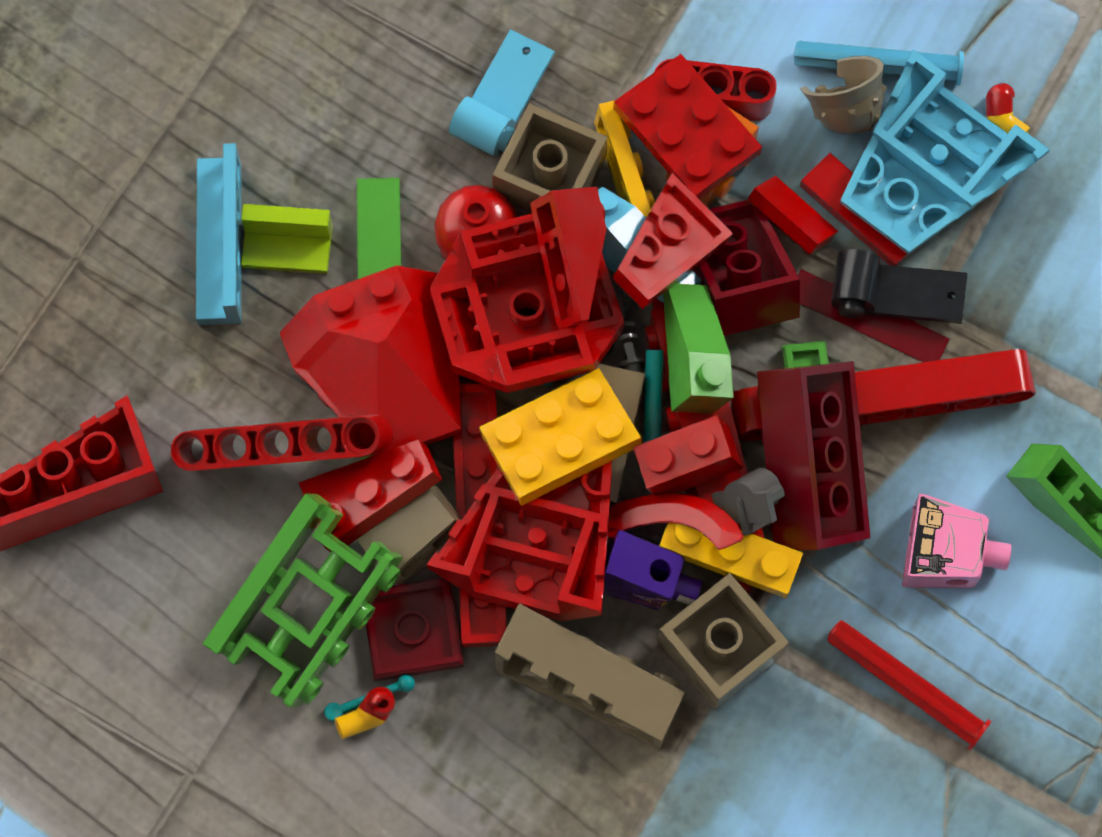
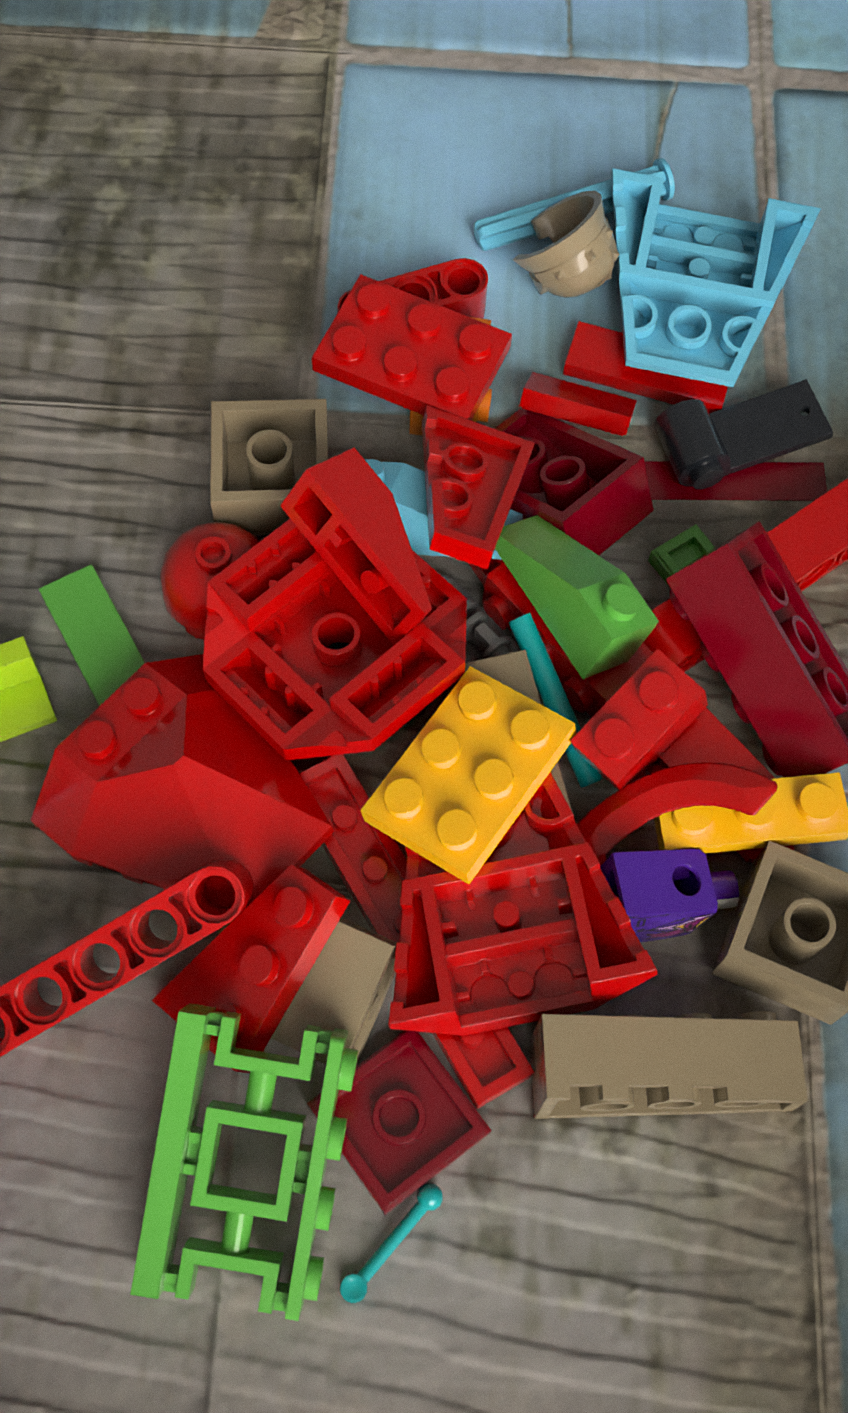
camera: 30 degrees left, 5 degrees down
(370, 713) = (406, 1264): arm -> none
(502, 95) = (168, 419): medium azure door -> none
(623, 164) = (348, 423): yellow plate -> none
(751, 499) = (747, 734): dark grey piece -> none
(1000, 108) = (730, 201): red arm -> none

